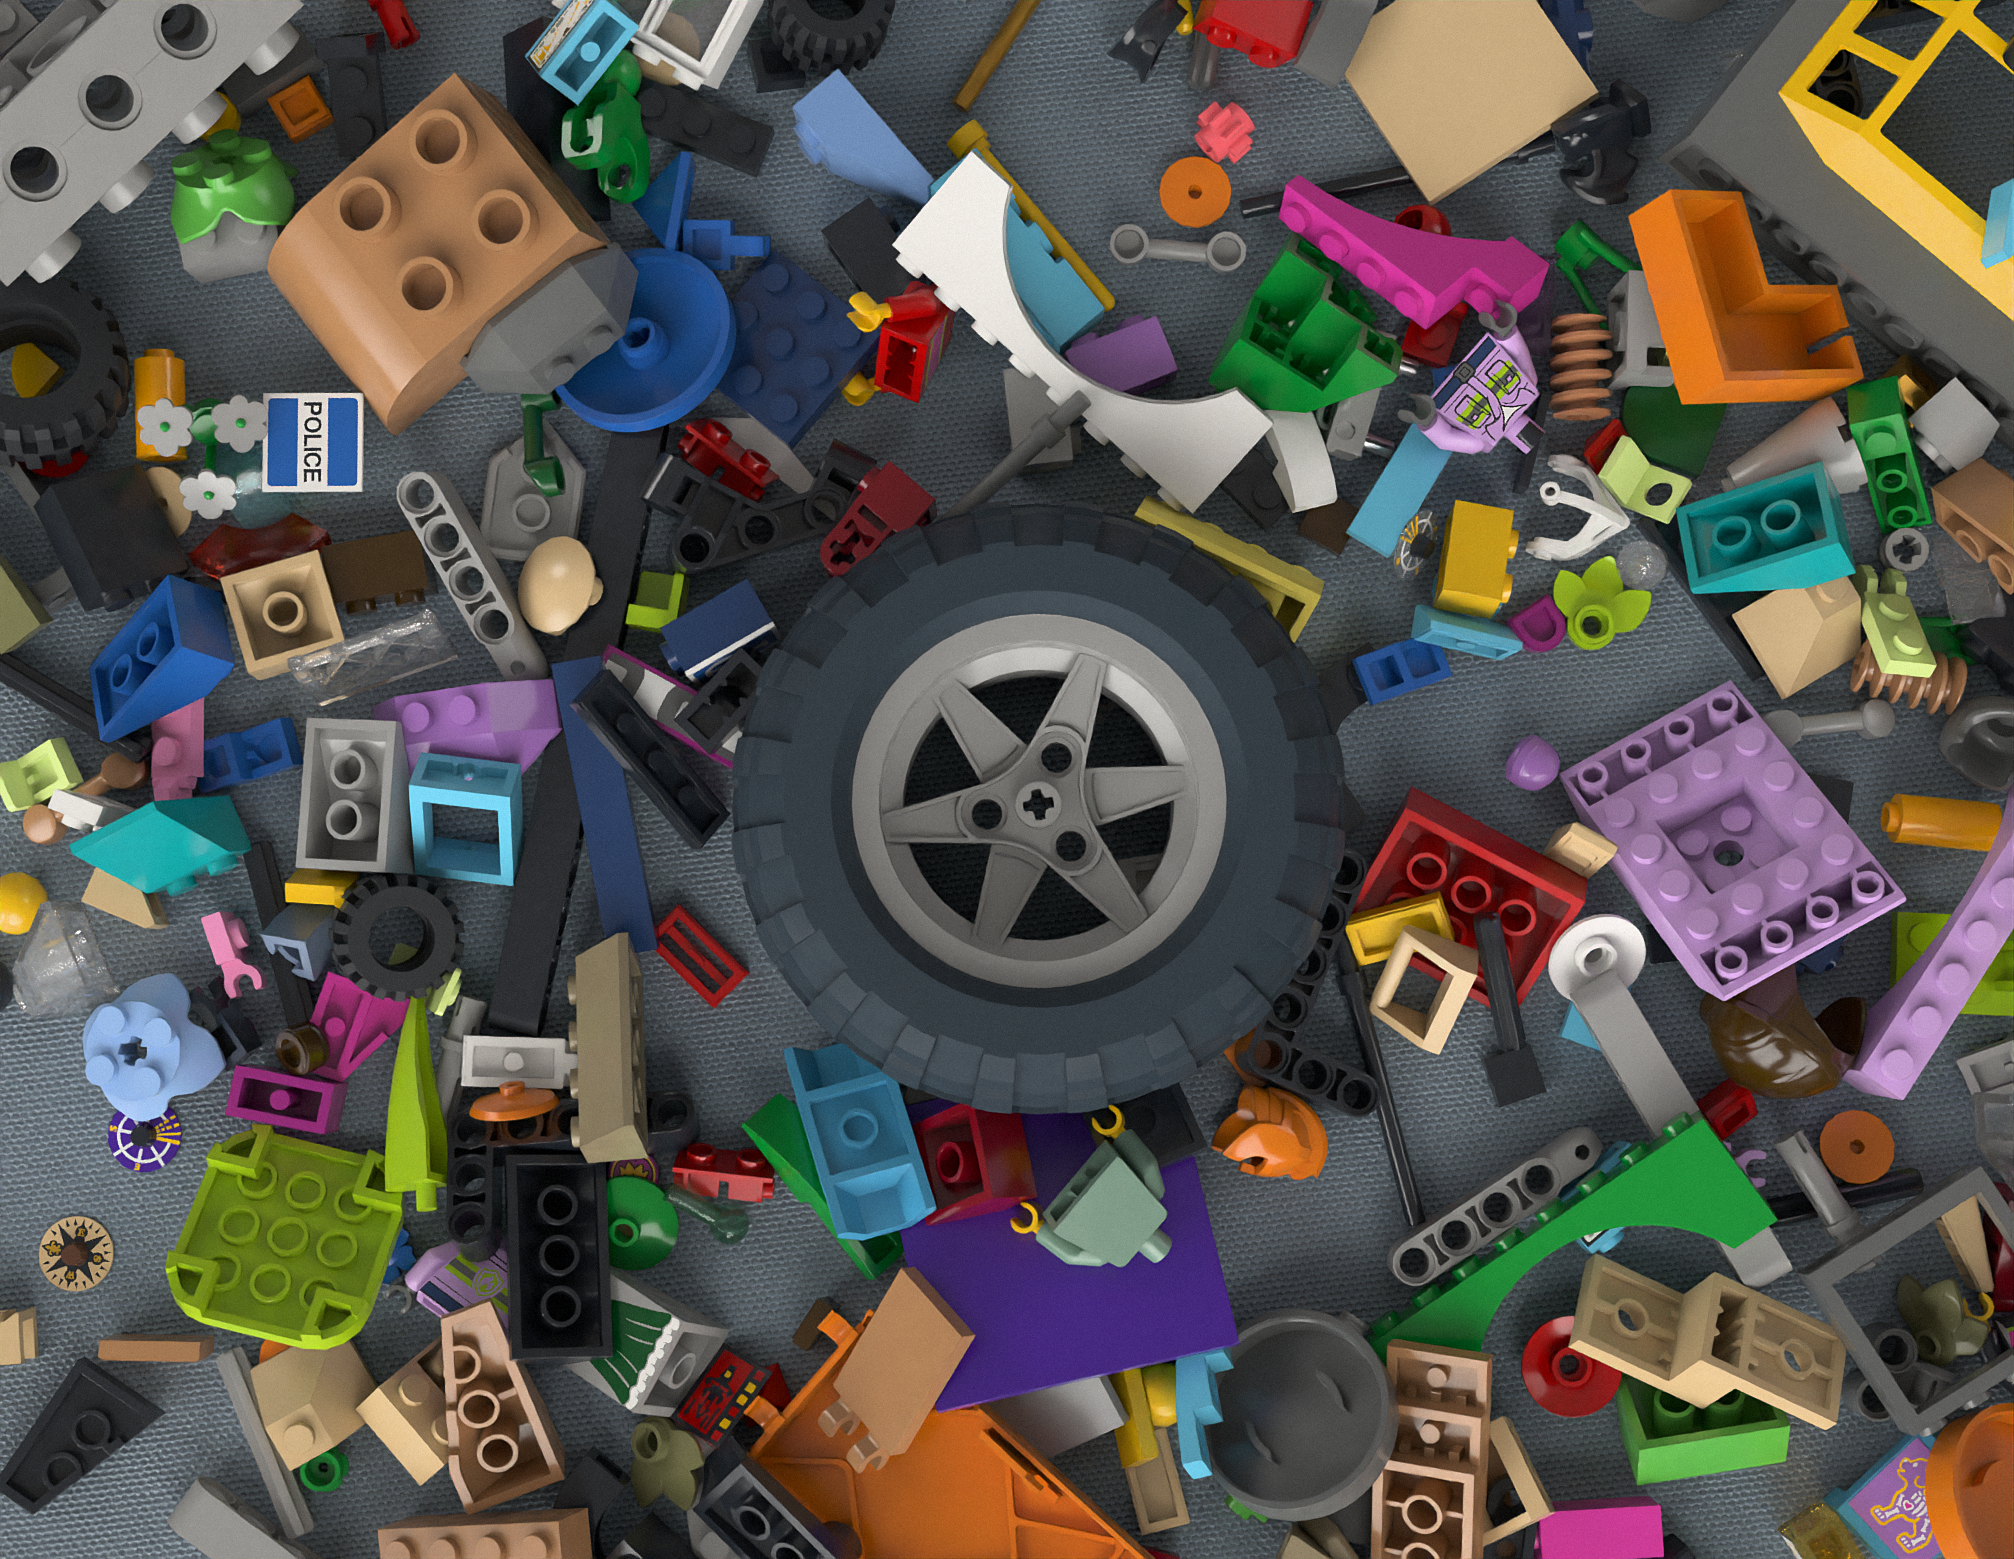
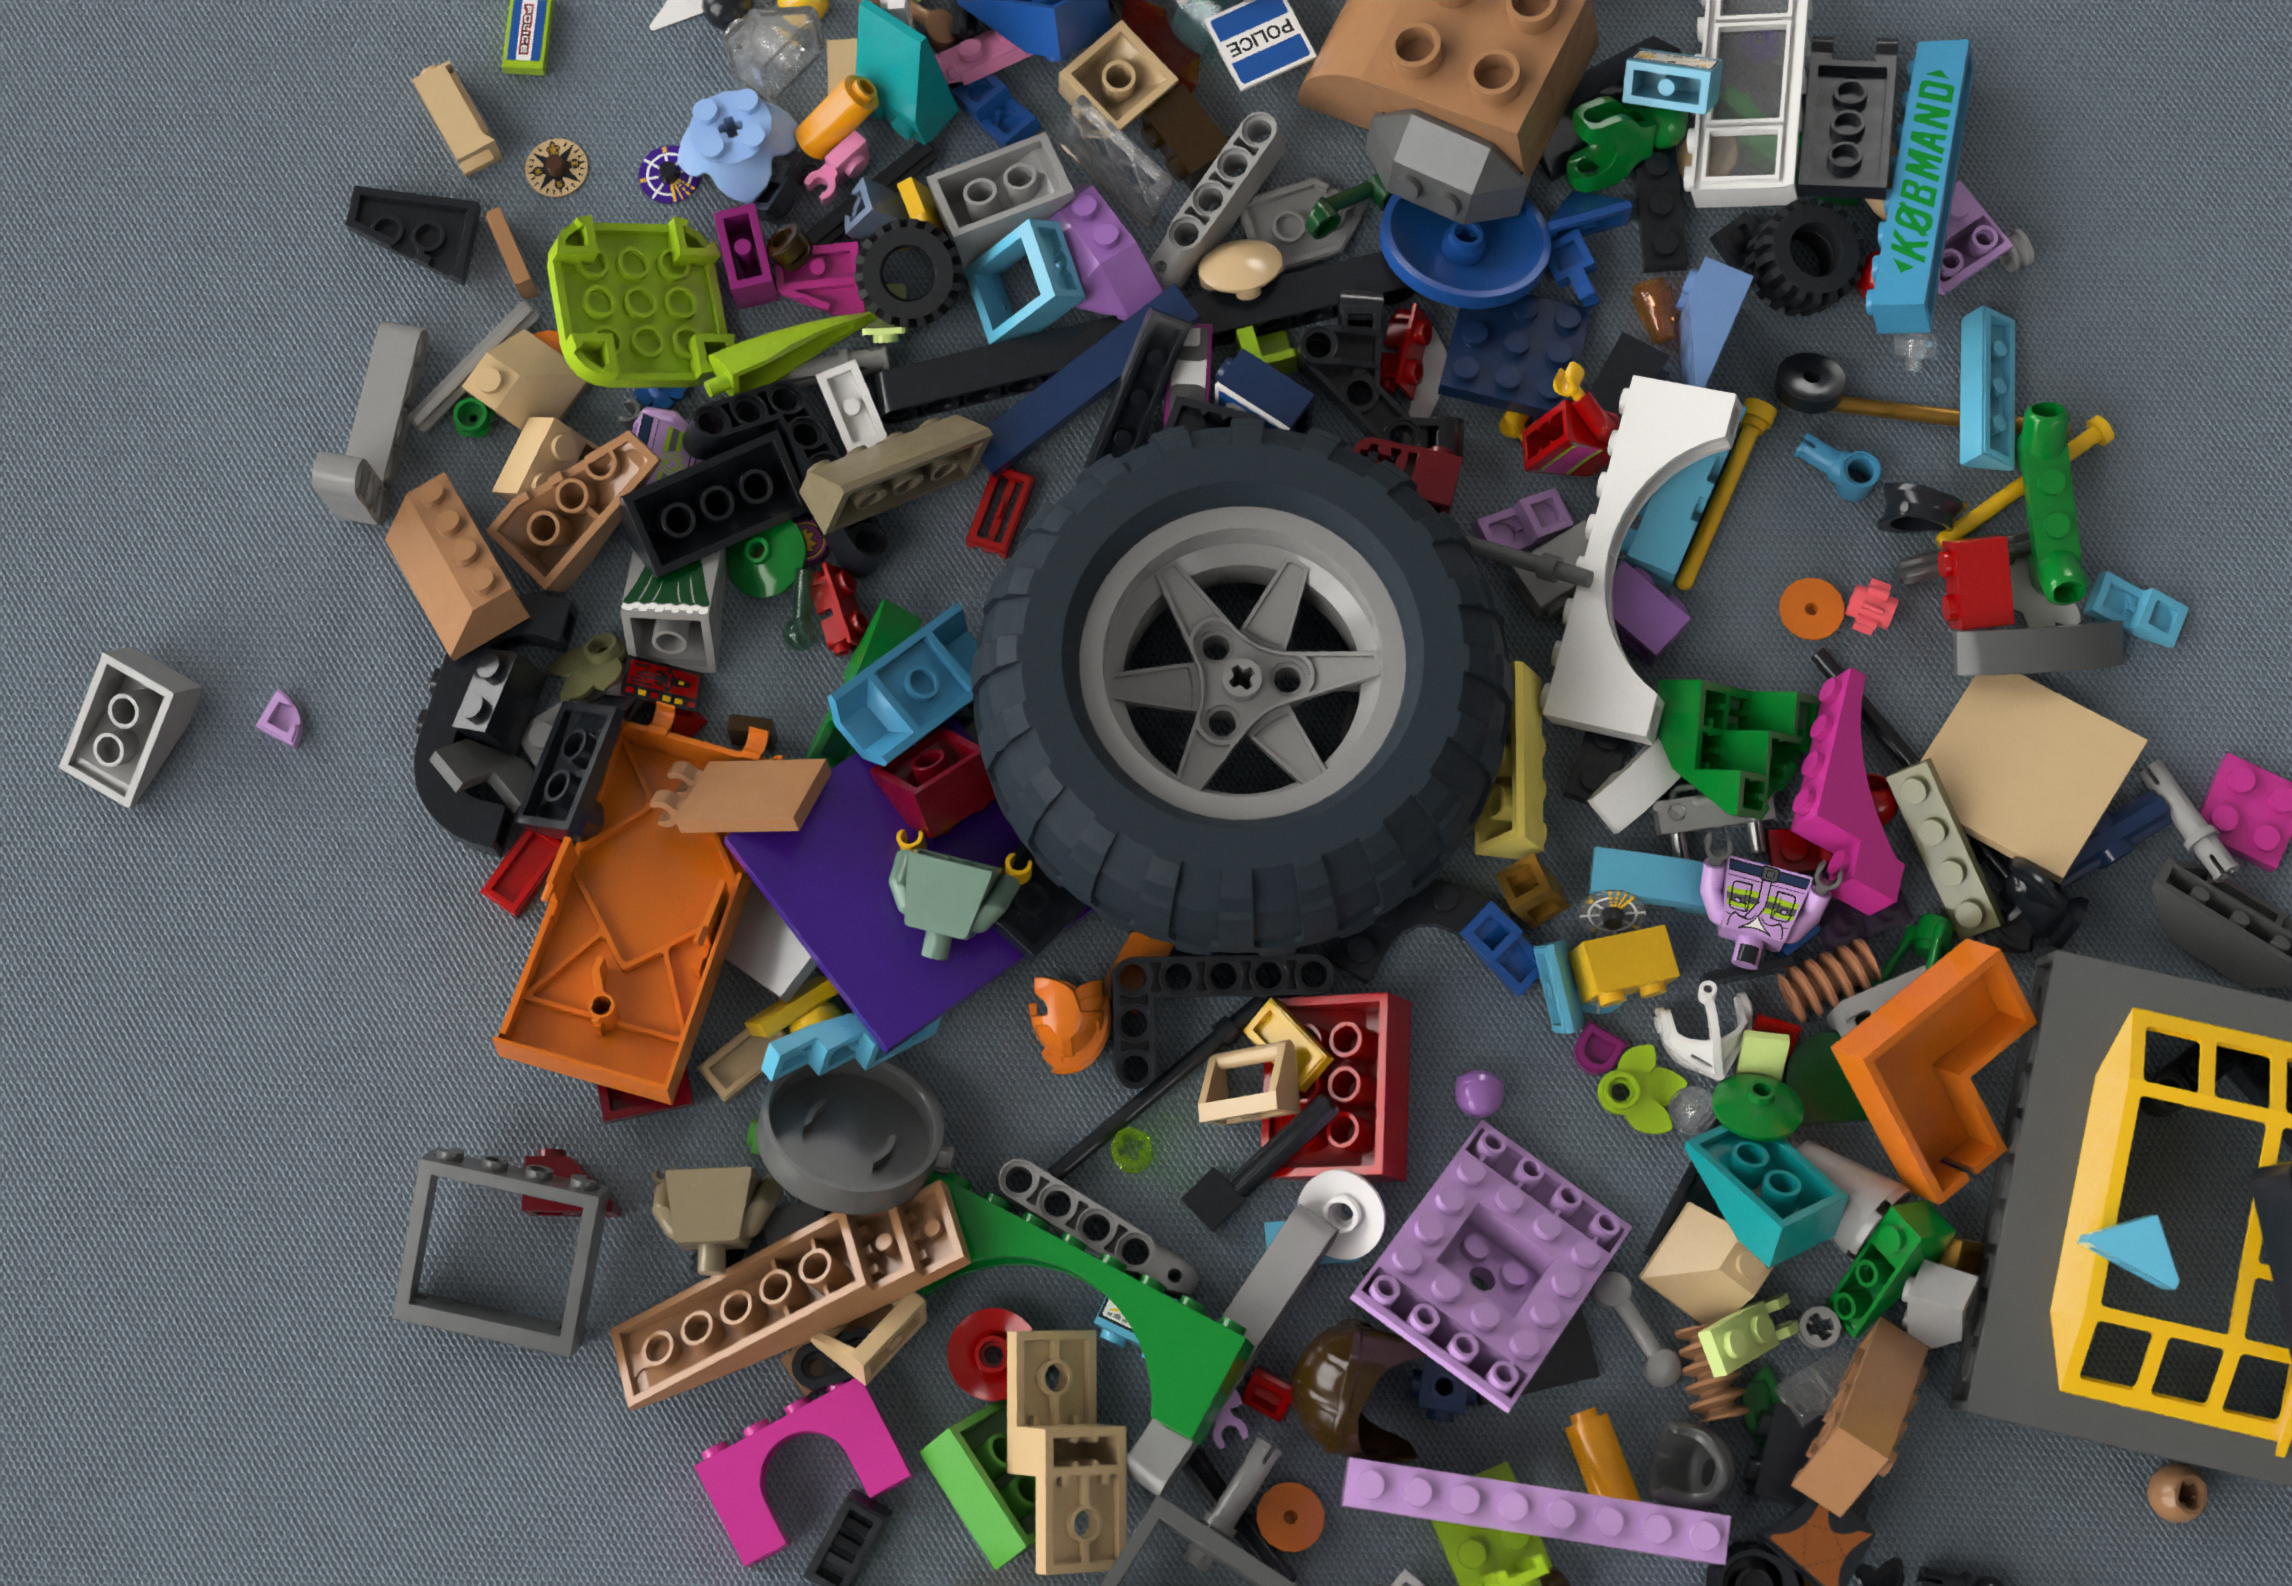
camera: 70 degrees right, 10 degrees down
(176, 930) = (837, 116): none -> light orange brick
(513, 1102) = (821, 418): orange piece -> none
(806, 185) = (1655, 308): none -> clear orange cone
(969, 88) = (1810, 383): none -> black piece
(969, 431) = (1527, 523): none -> lavender slope
(1061, 88) = (1838, 464): none -> dark azure pin
(1222, 254) = (1739, 580): light grey bar -> none
(1328, 525) = (1591, 833): dark brown tile -> none
(1359, 612) = (1532, 891): none -> pearl gold brick
(1439, 1147) = (1138, 1138): none -> clear neon green bush
(1506, 189) = (1945, 849): none -> plate
(1580, 849) = (1424, 1159): tan slope -> none
(1686, 513) = (1757, 1107): none -> green dish

